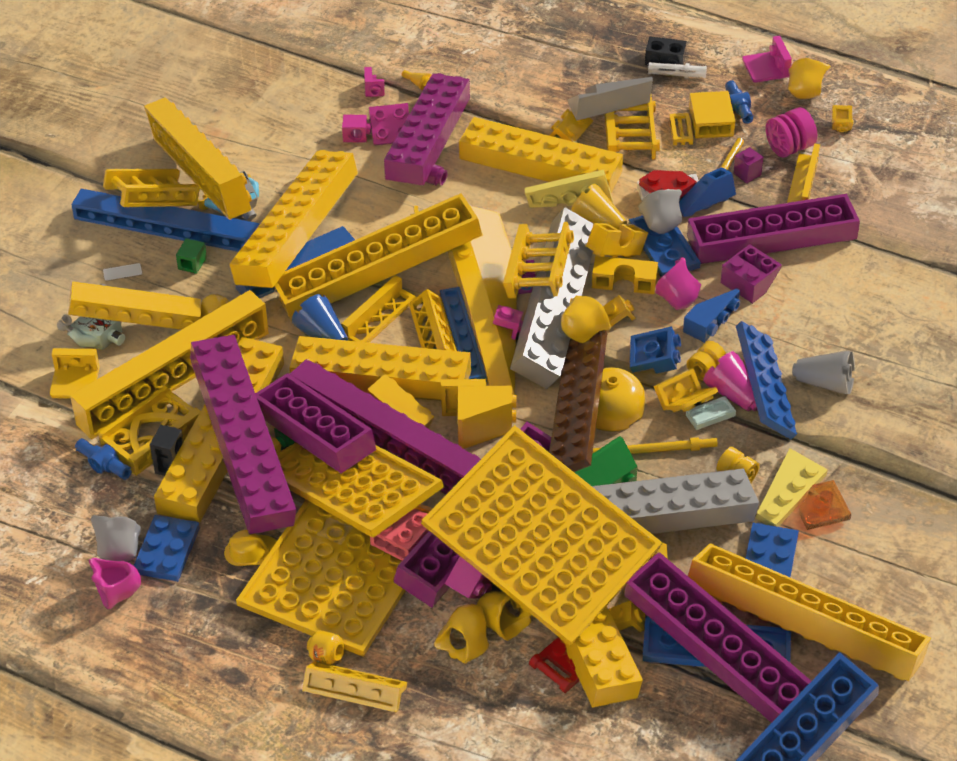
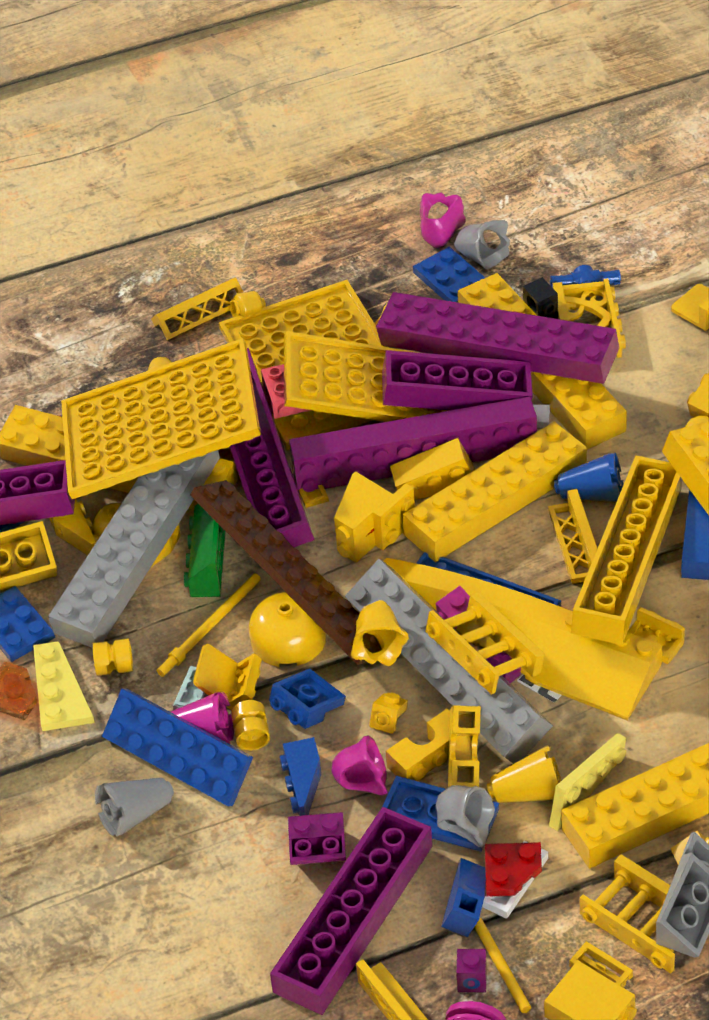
camera: 135 degrees right, 0 degrees up
(163, 364) = (646, 357): yellow brick -> none
(436, 322) = (512, 566): yellow fence -> none

